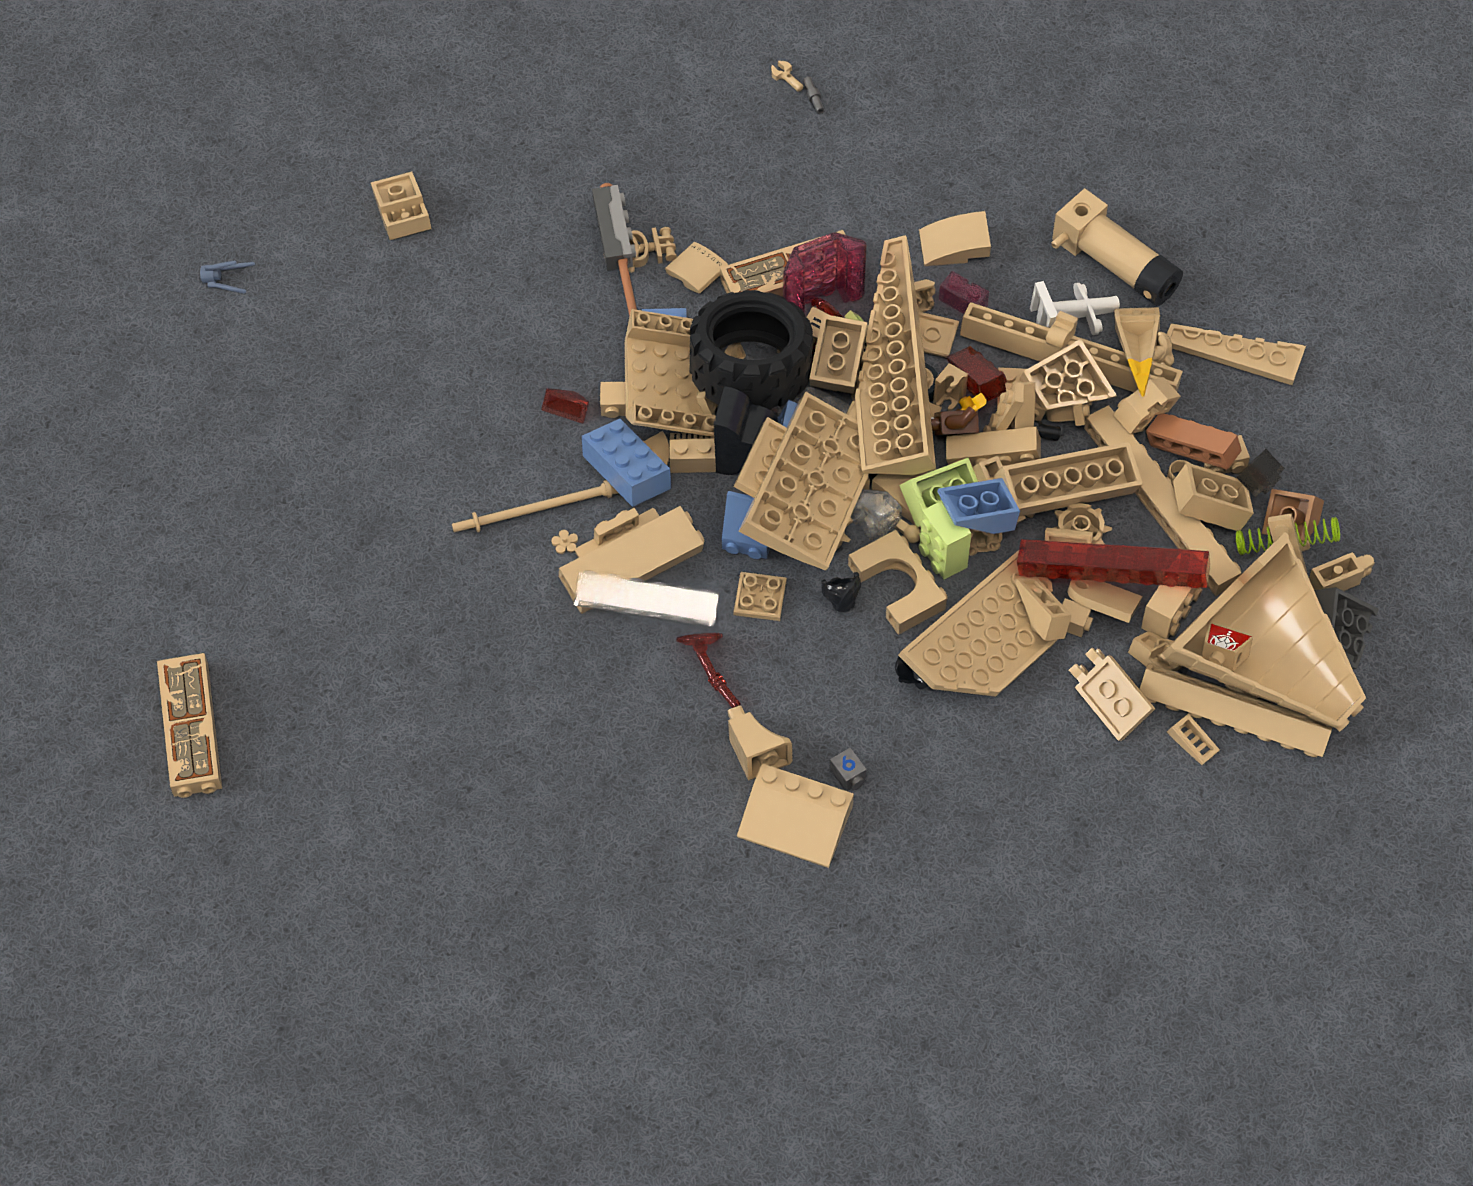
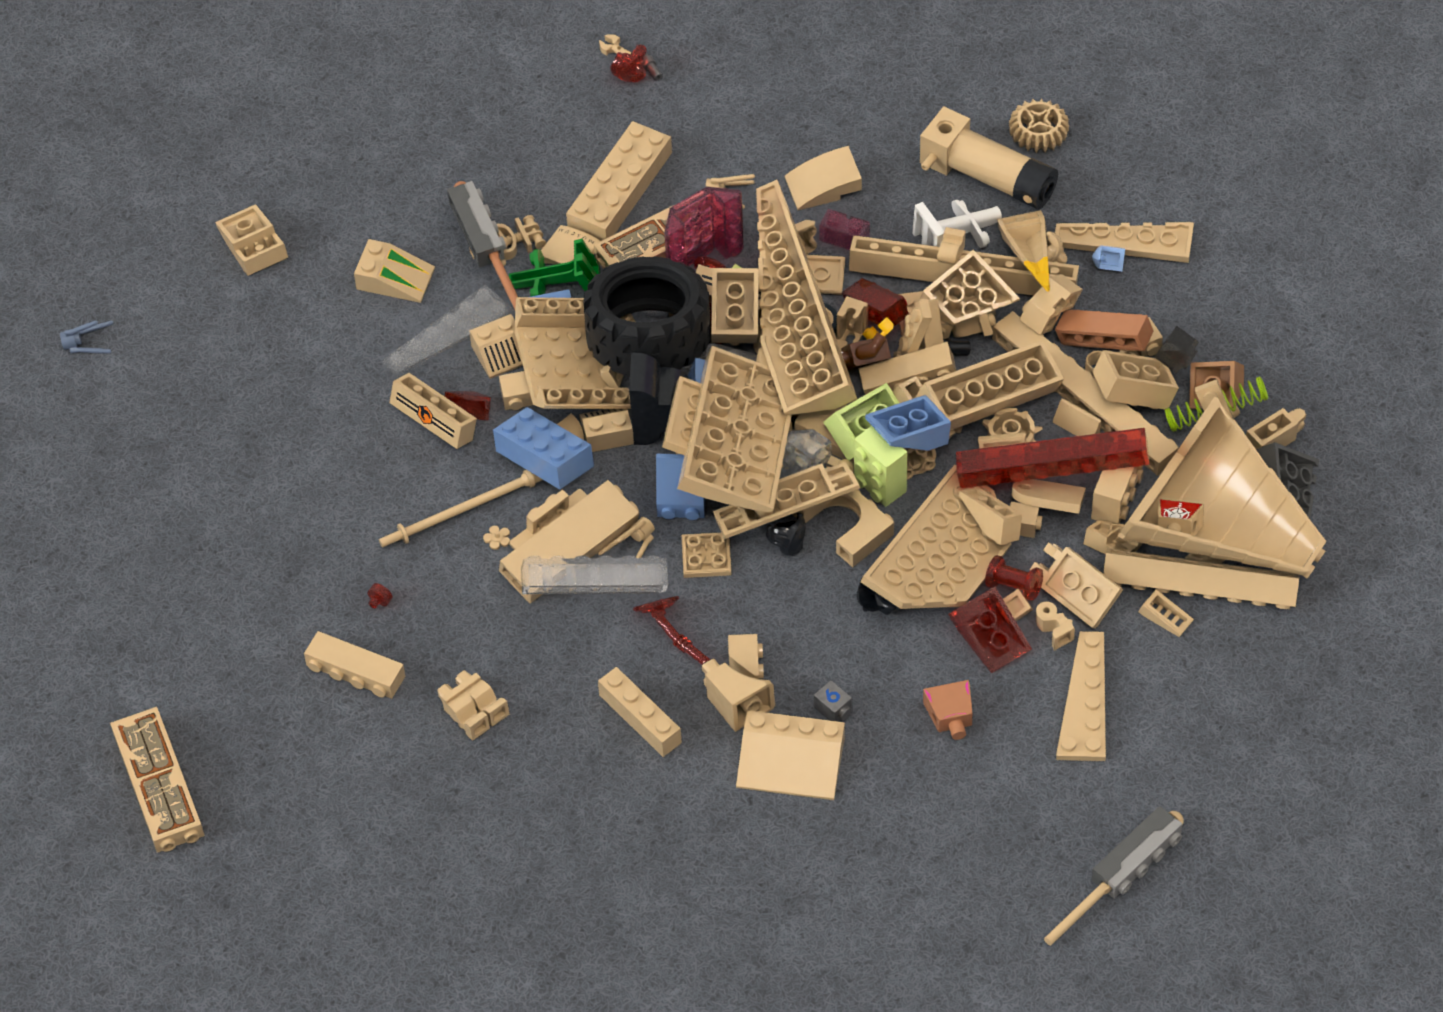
camera: 10 degrees left, 5 degrees down
(400, 645) = (354, 665): none -> tan brick
(439, 580) = (379, 595): none -> clear red tile
(502, 697) = (466, 697): none -> tan hips
(524, 260) = (392, 272): none -> tan slope
(531, 405) = (433, 410): none -> tan brick
(580, 321) = (448, 331): none -> clear wing
(606, 351) = (496, 346): none -> tan slope
(660, 743) = (639, 711): none -> tan brick
(701, 561) = (639, 531): none -> tan plant
(702, 290) = (580, 269): none -> green piece
(759, 209) = (620, 181): none -> tan brick
(773, 706) = (744, 655): none -> tan slope
(793, 96) = (629, 66): none -> clear red hair
(853, 229) = (730, 181): none -> tan plant
(853, 554) = (793, 495): none -> tan slope
(961, 796) = (950, 707): none -> nougat torso
(1017, 724) = (990, 630): none -> clear red slope
(1039, 669) = (1000, 573): none -> clear red piece
(1047, 704) = (1017, 604): none -> tan plate
(1077, 725) = (1049, 620): none -> tan leg
(1091, 828) = (1084, 714): none -> tan wing
(1100, 988) = (1127, 862): none -> piece
(1148, 527) = (1076, 419): none -> tan slope
(1175, 228) = (1039, 130): none -> tan gear
(1215, 367) = (1109, 258): none -> light blue plate

